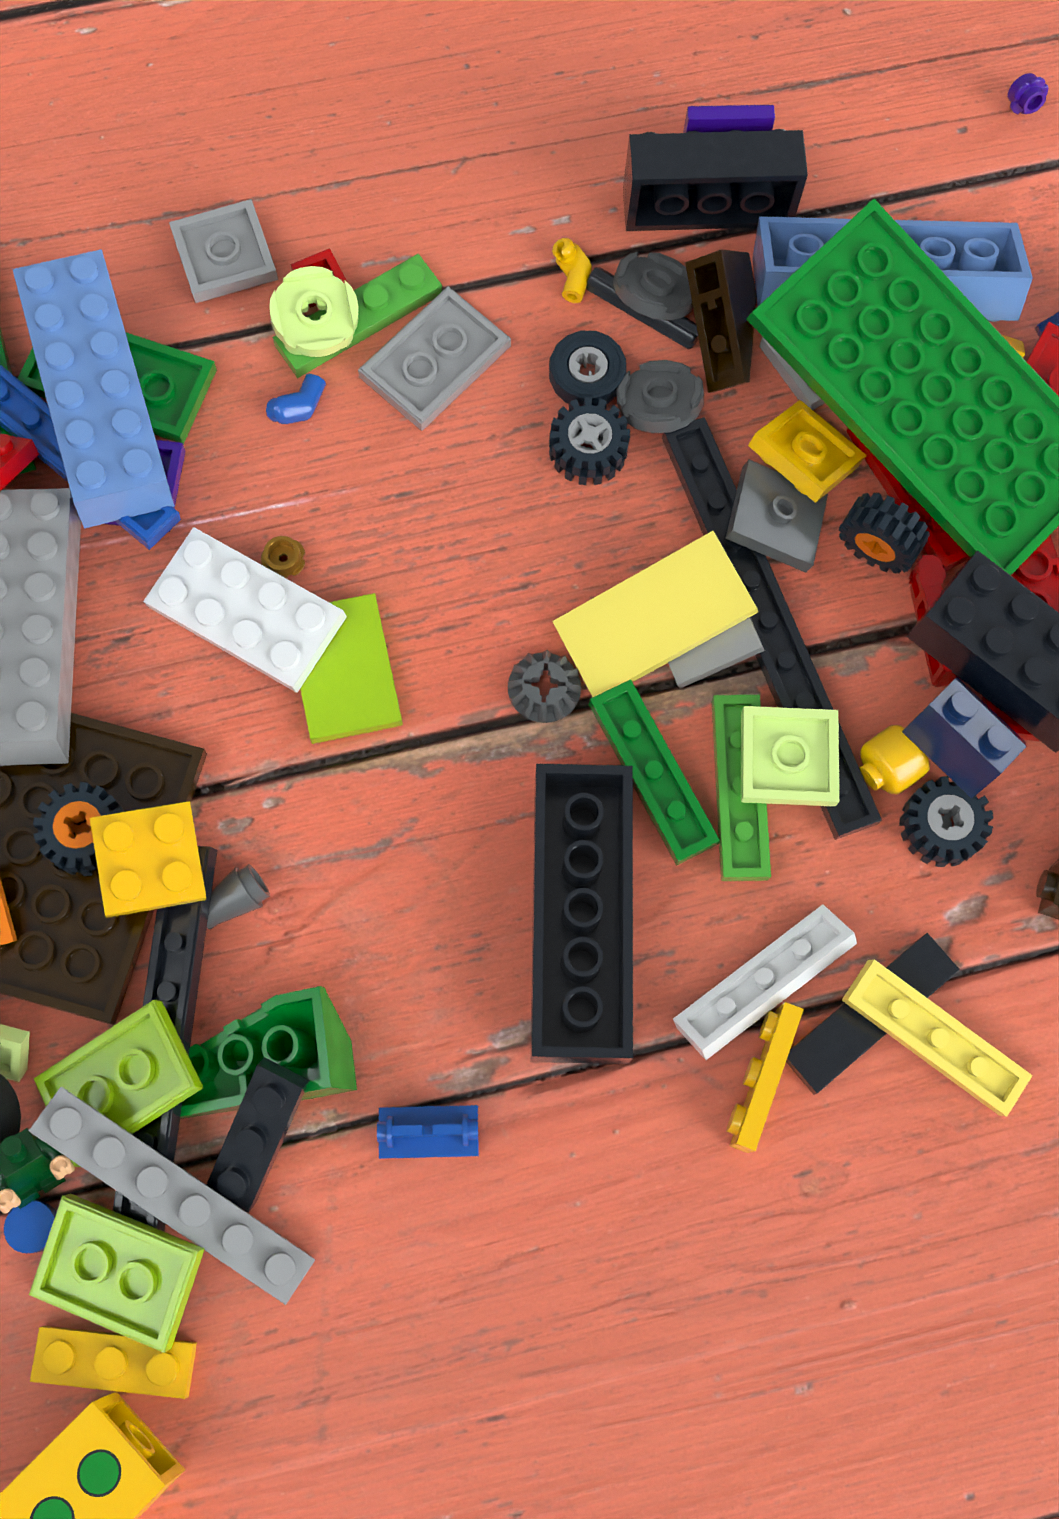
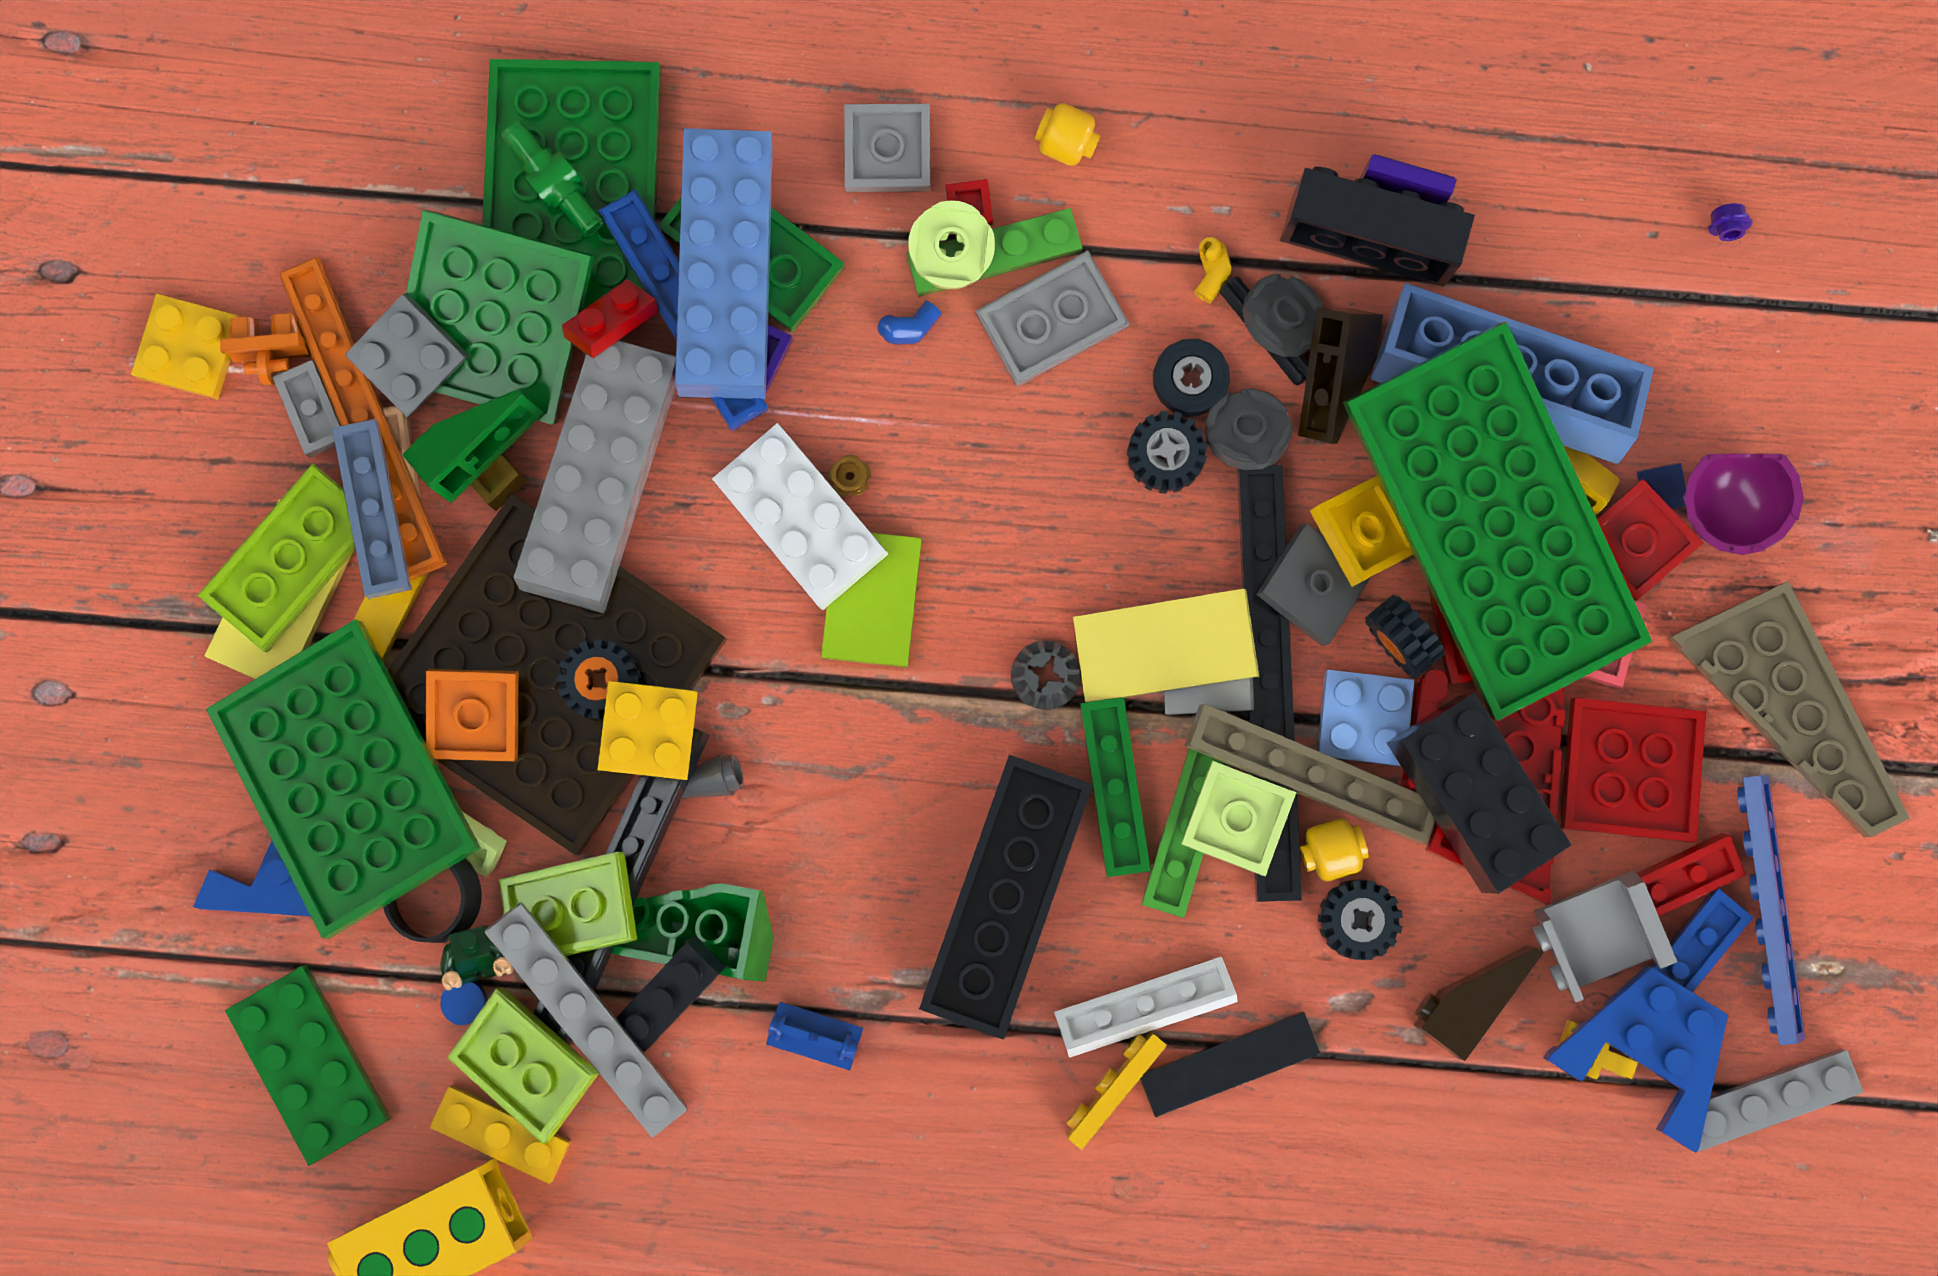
camera: 25 degrees right, 10 degrees up
(392, 188) = (1067, 134): none -> yellow head
(822, 685) = (1310, 773): none -> dark tan plate
(870, 628) = (1362, 715): none -> light blue plate
(937, 1037) = (1275, 1107): light yellow plate -> none
(965, 738) = (1402, 855): dark blue slope -> none

